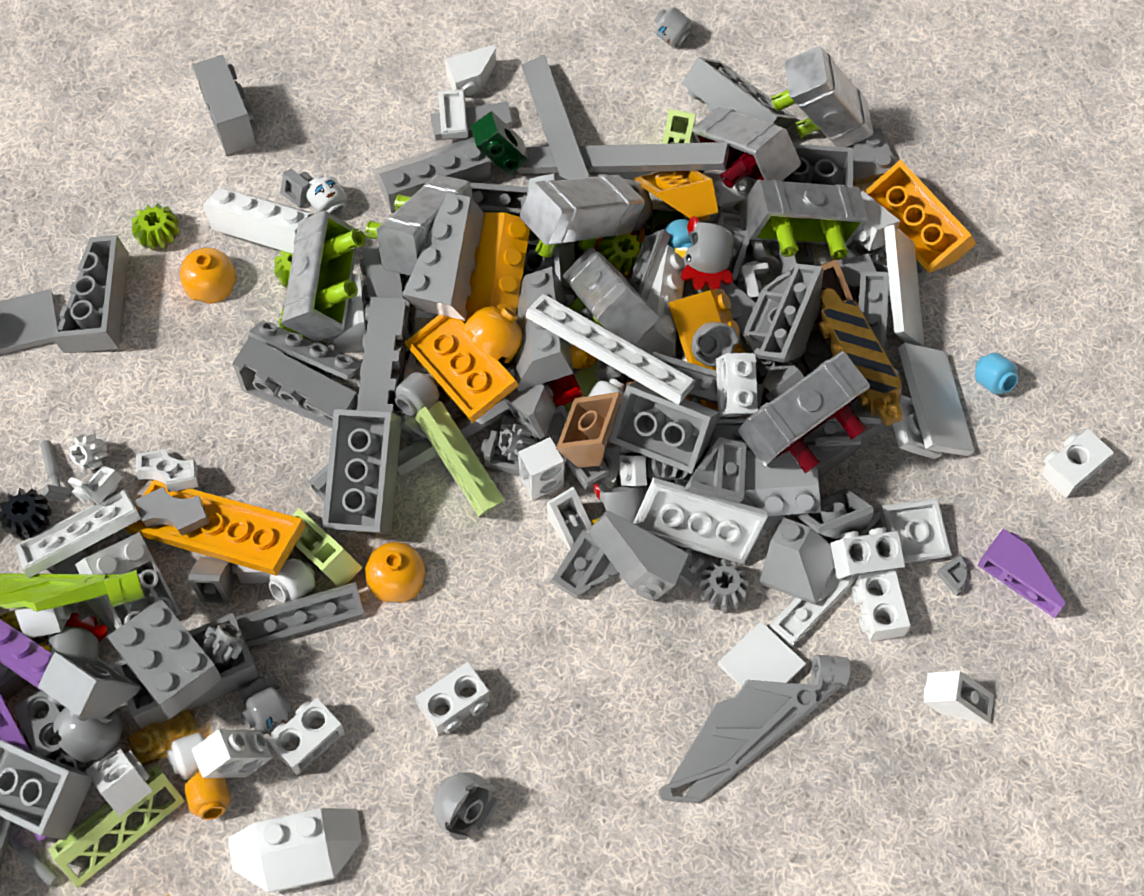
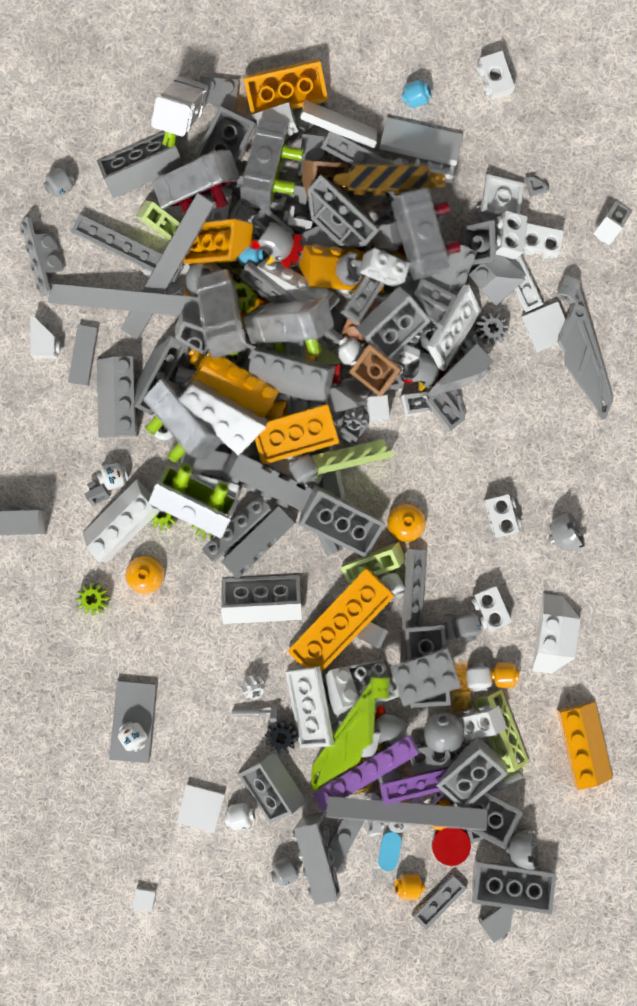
camera: 70 degrees left, 25 degrees up
(85, 686) = (427, 725): light grey slope -> none
(96, 299) = (139, 652): light grey wedge -> none
(98, 487) = (279, 687): white bracket -> none
(162, 508) = (328, 638): light grey tile -> none
(170, 471) = (292, 635): white tile -> none
(218, 421) = (261, 599): none -> white slope
(222, 642) = (428, 639): light grey gear -> none
(231, 753) = (492, 654): white brick -> none
(453, 114) = (76, 366): white tile -> none
(495, 332) = (285, 405): light orange cylinder -> none
(499, 143) = (121, 344): dark green brick -> none
(578, 42) = (42, 253): none -> light grey bracket
(610, 349) = (337, 338): white tile -> none
(627, 105) = (118, 244): none -> light grey plate
(1019, 569) = (547, 147): medium lavender slope -> none

